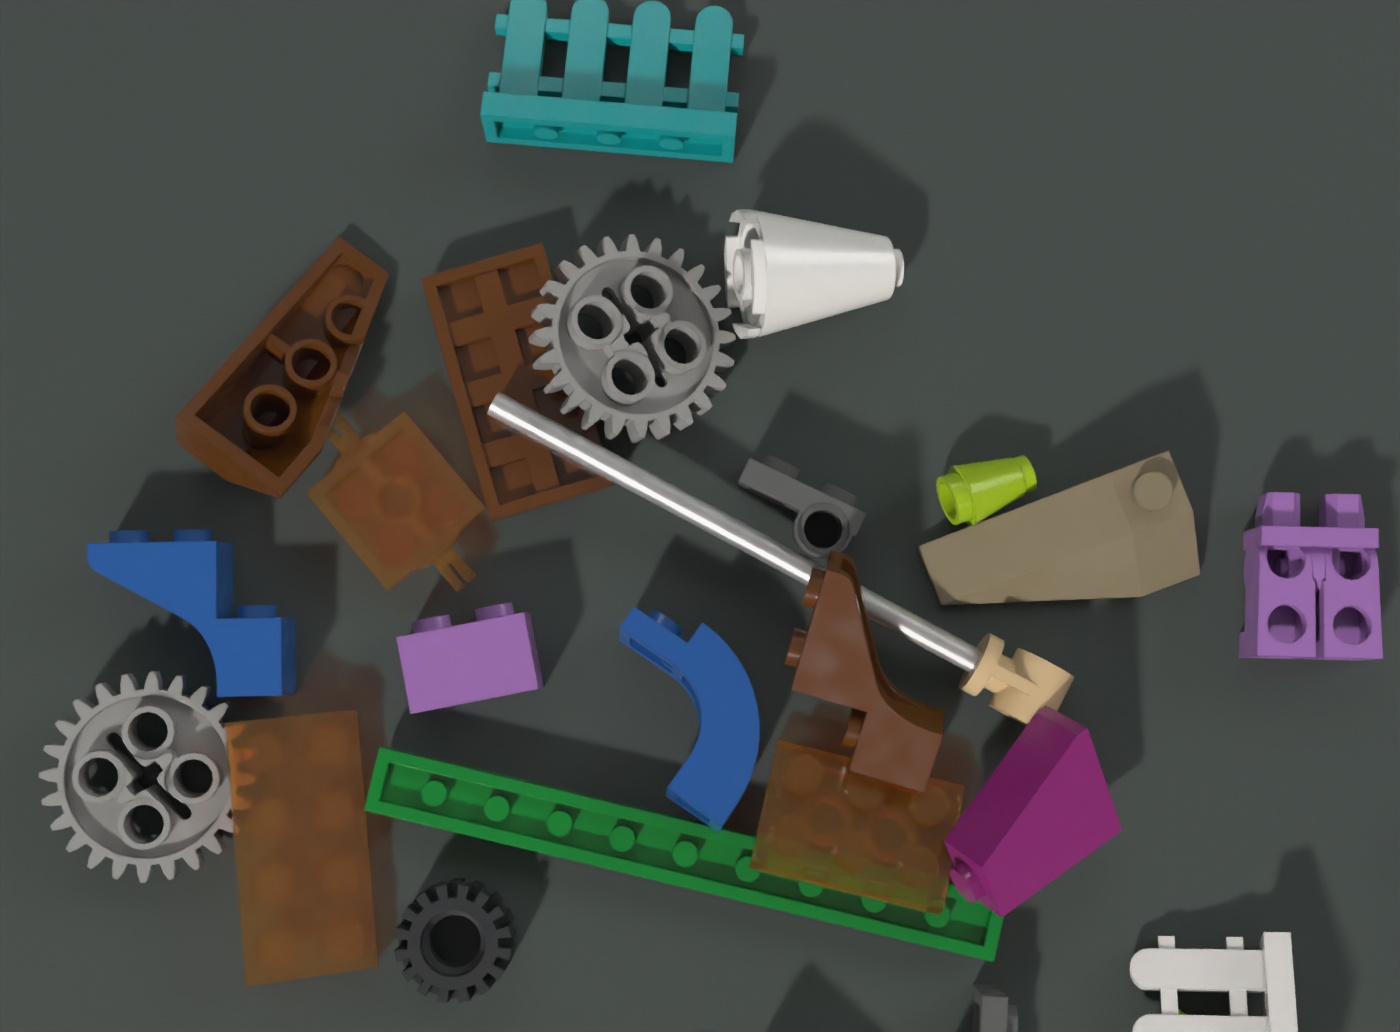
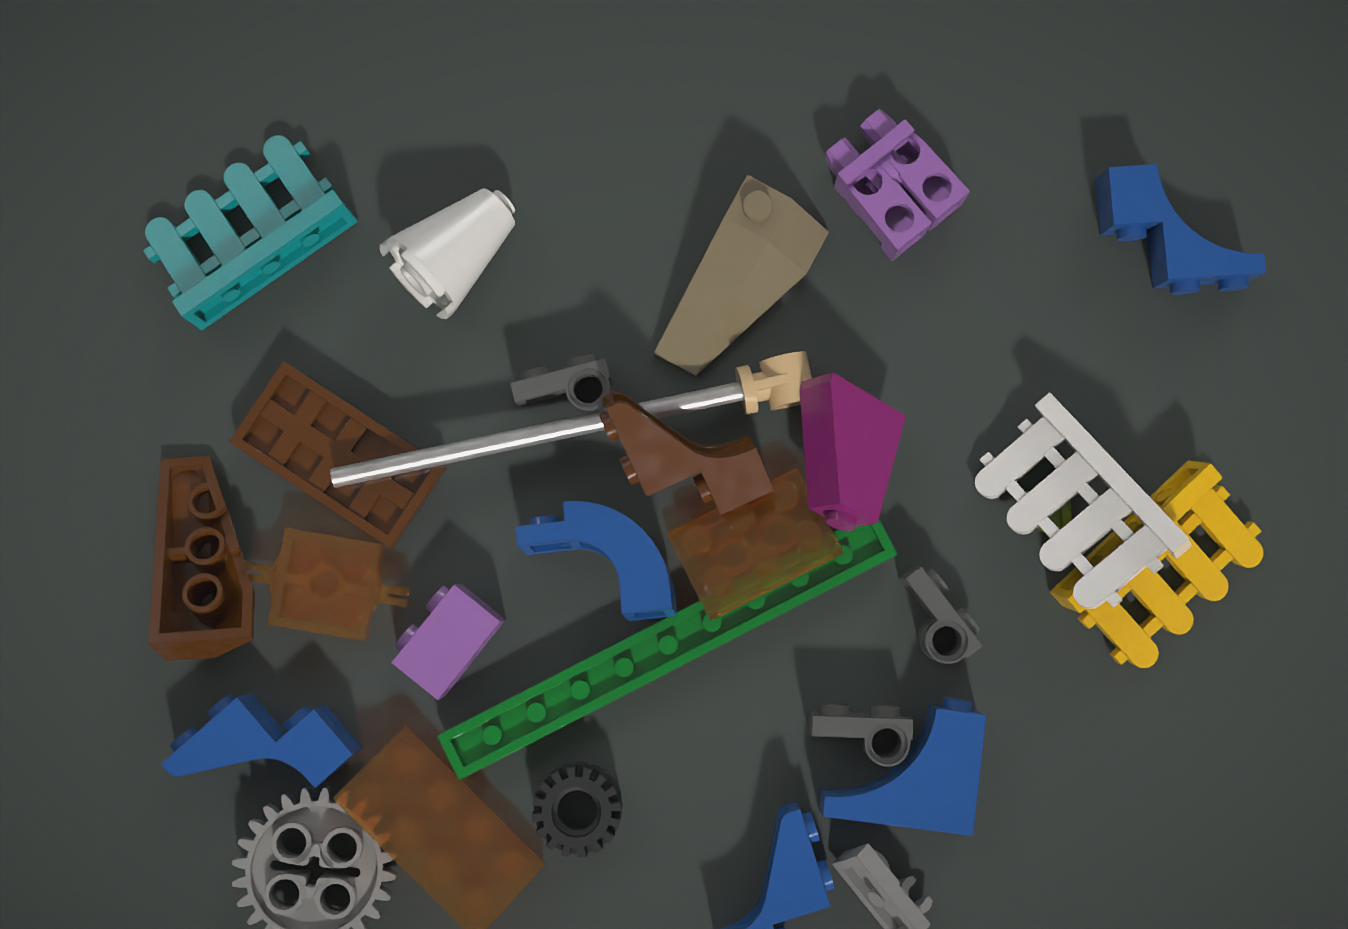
camera: 40 degrees left, 0 degrees up
(586, 364) = (367, 409): light grey gear -> none
(982, 488) = (662, 287): lime cone -> none

